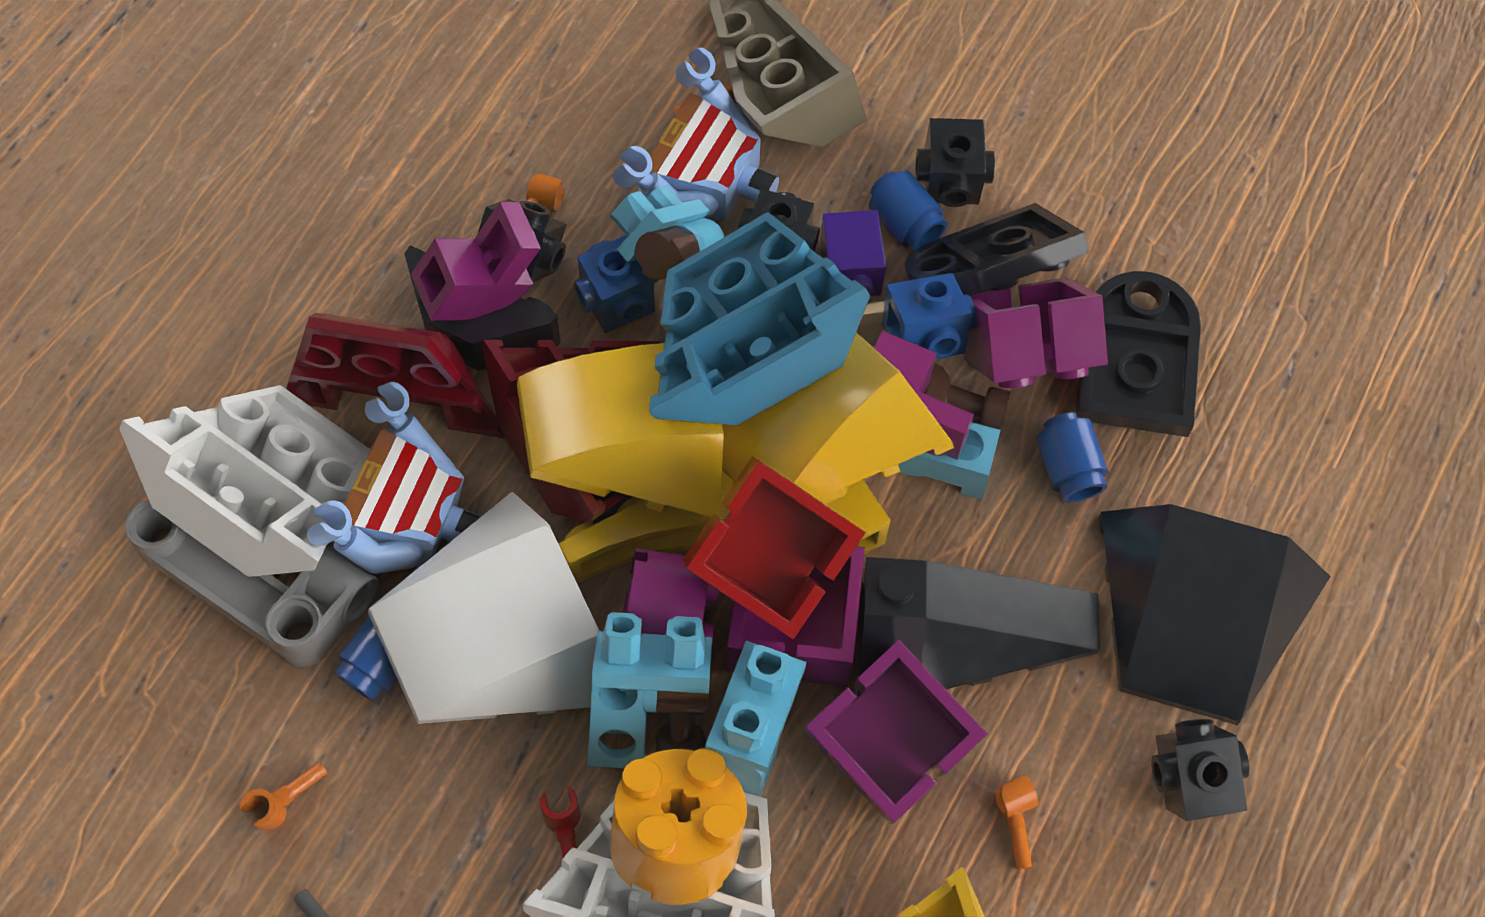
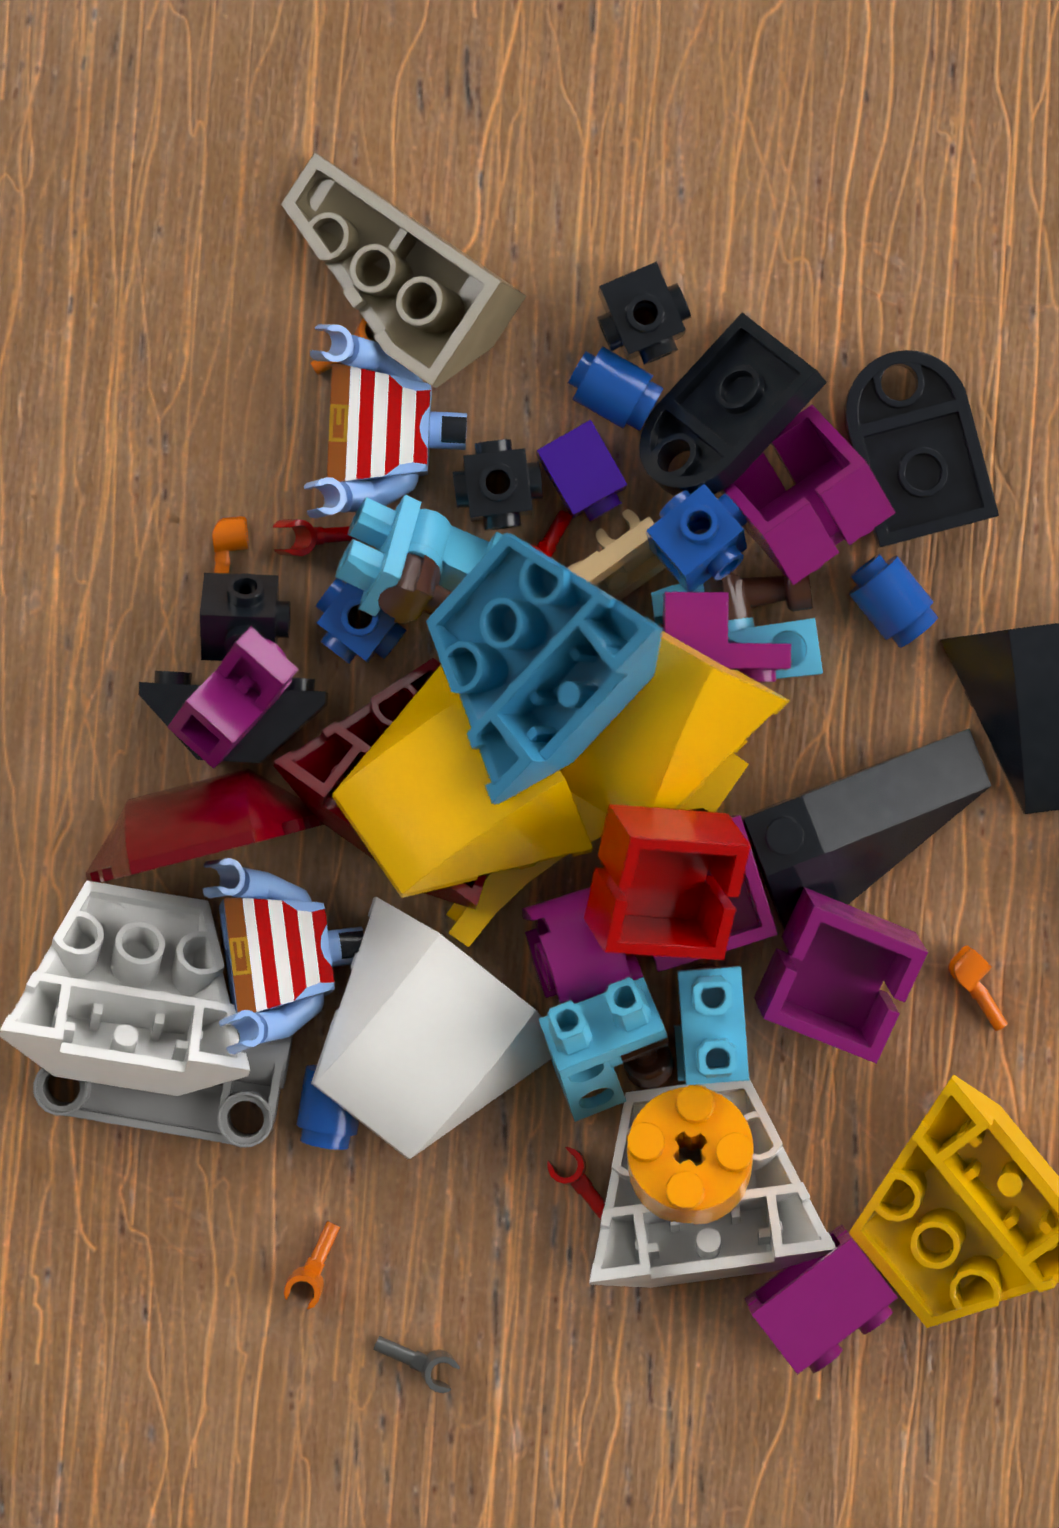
camera: 20 degrees left, 25 degrees up
(603, 207) = (309, 536): none -> red hand

